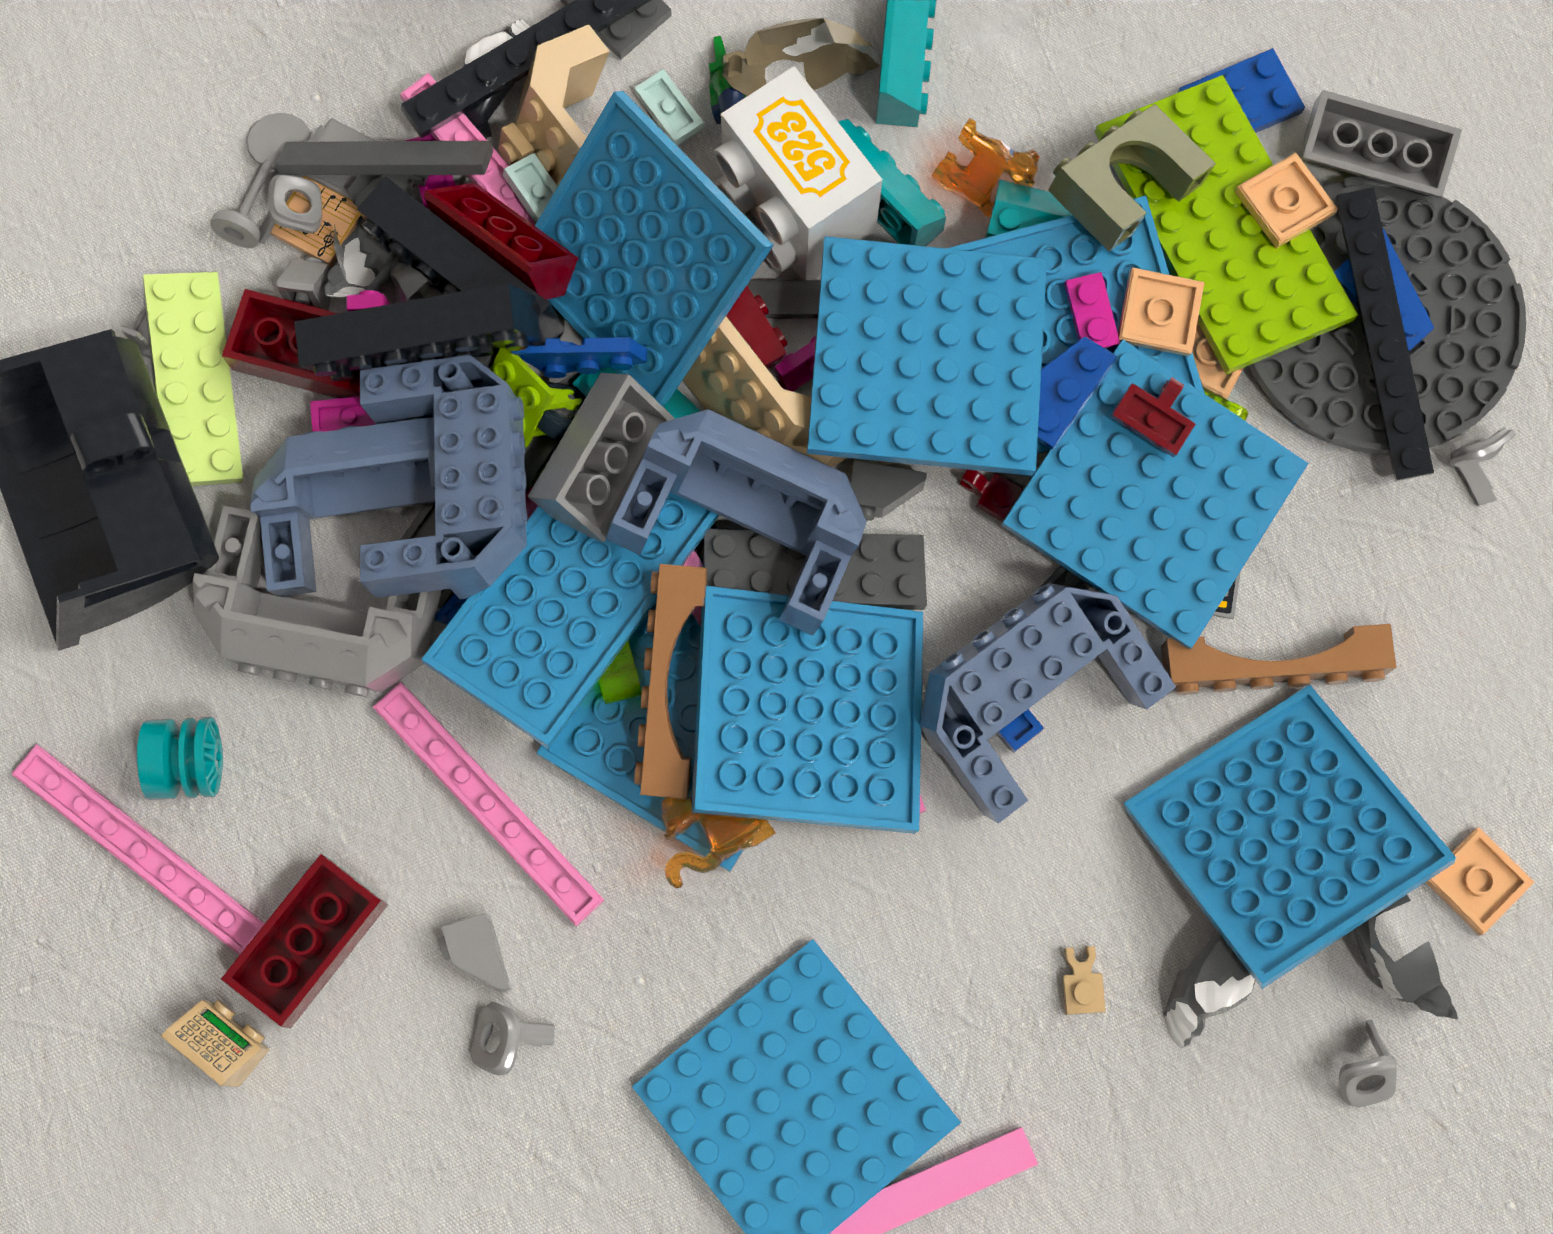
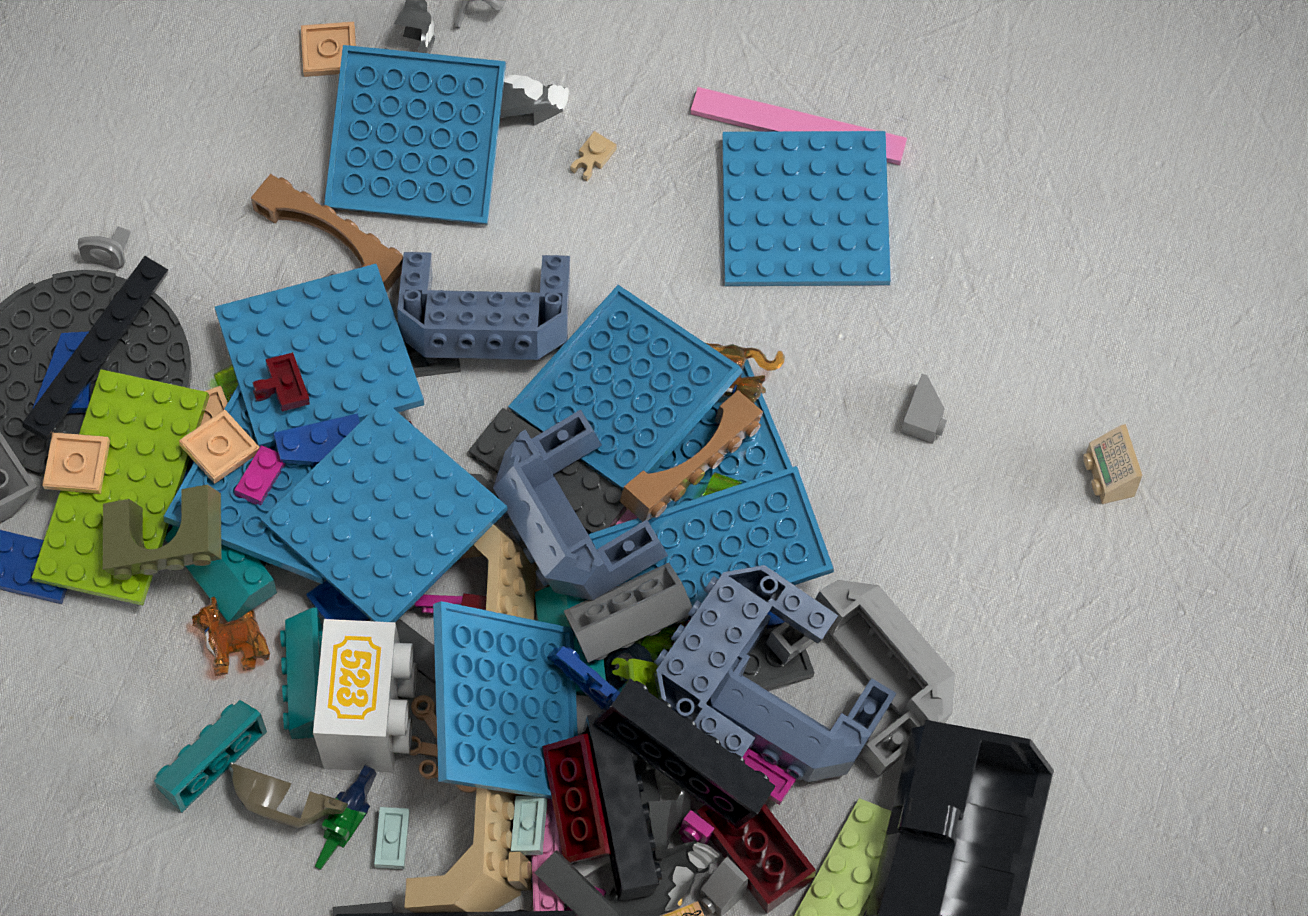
camera: 140 degrees left, 10 degrees down
(138, 849) = (1085, 619): bright pink tile -> none
(179, 758) = (1021, 639): teal wheel -> none
(304, 942) = (1021, 485): dark red brick -> none
(489, 804) = (853, 486): bright pink tile -> none
(511, 1033) = (937, 349): light grey piece -> none

